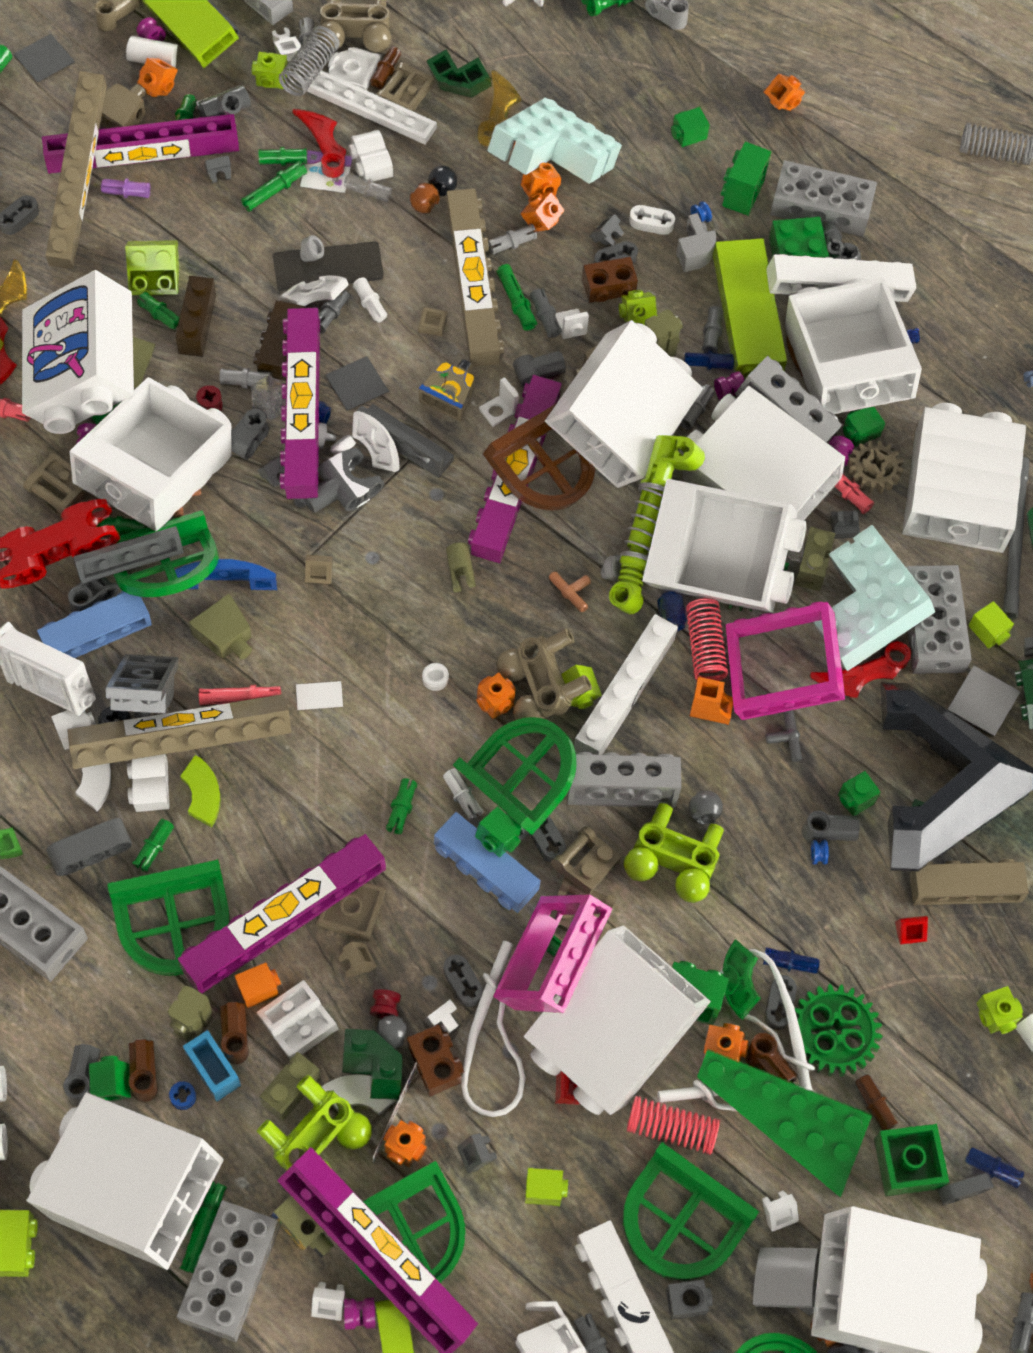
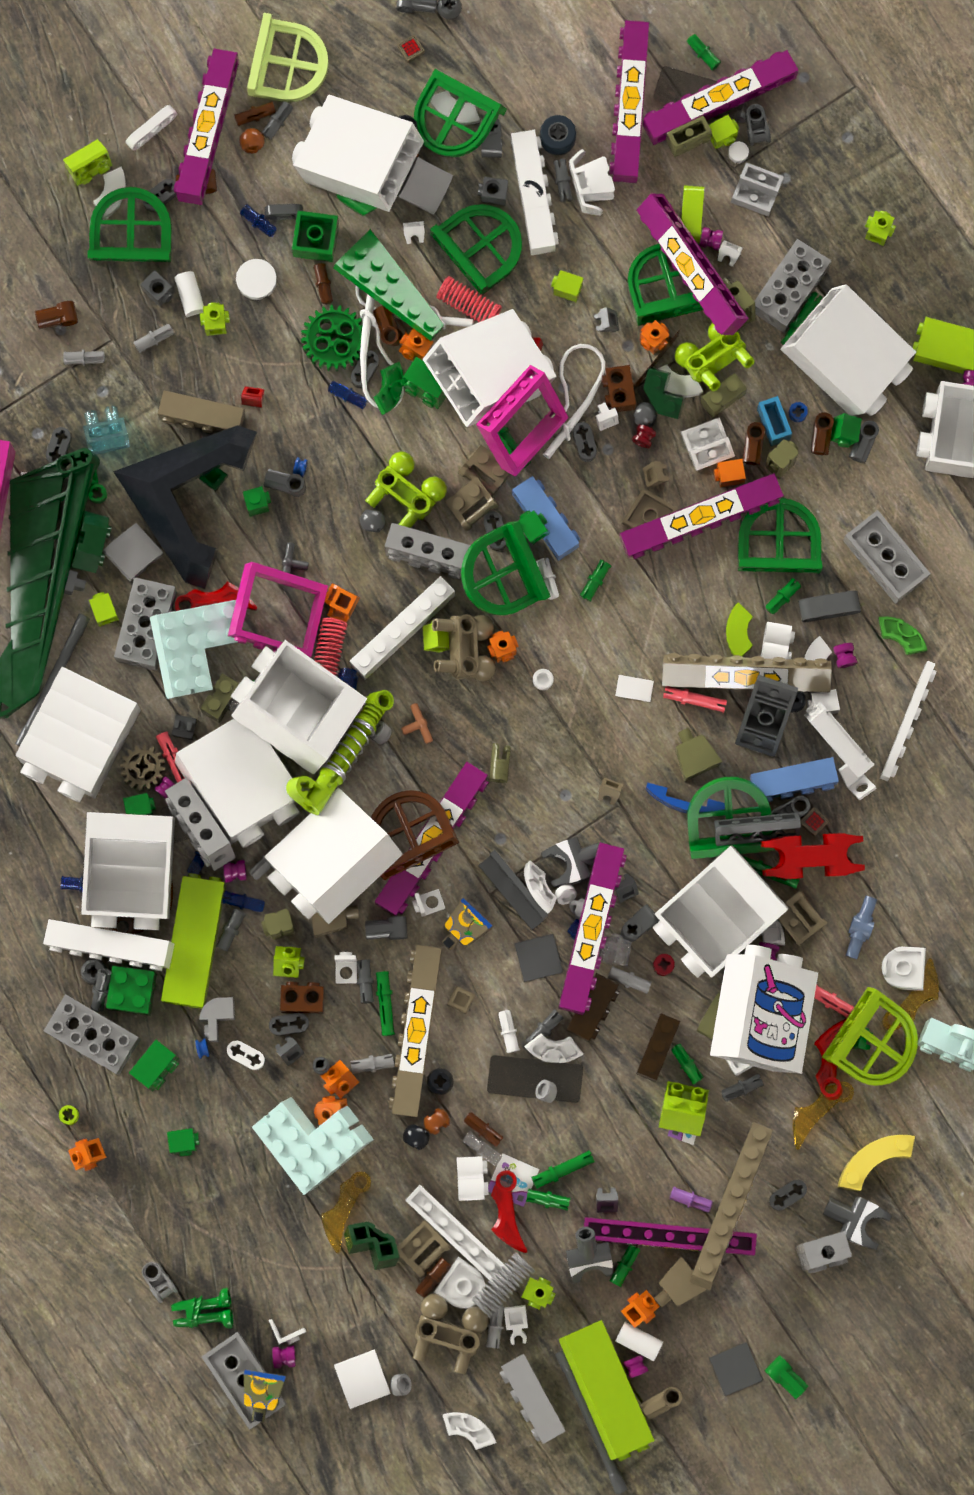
camera: 160 degrees left, 15 degrees up
(57, 790) = (845, 655): none -> magenta wheel
(58, 593) = (814, 822): none -> tile
(371, 204) = (483, 1129): none -> reddish brown axle
(431, 229) = (446, 1075): none -> black piece
(567, 215) = (324, 1069): none -> dark grey pin
(817, 123) = (62, 1117): none -> lime bush
(966, 1087) = (256, 279): none -> white tile

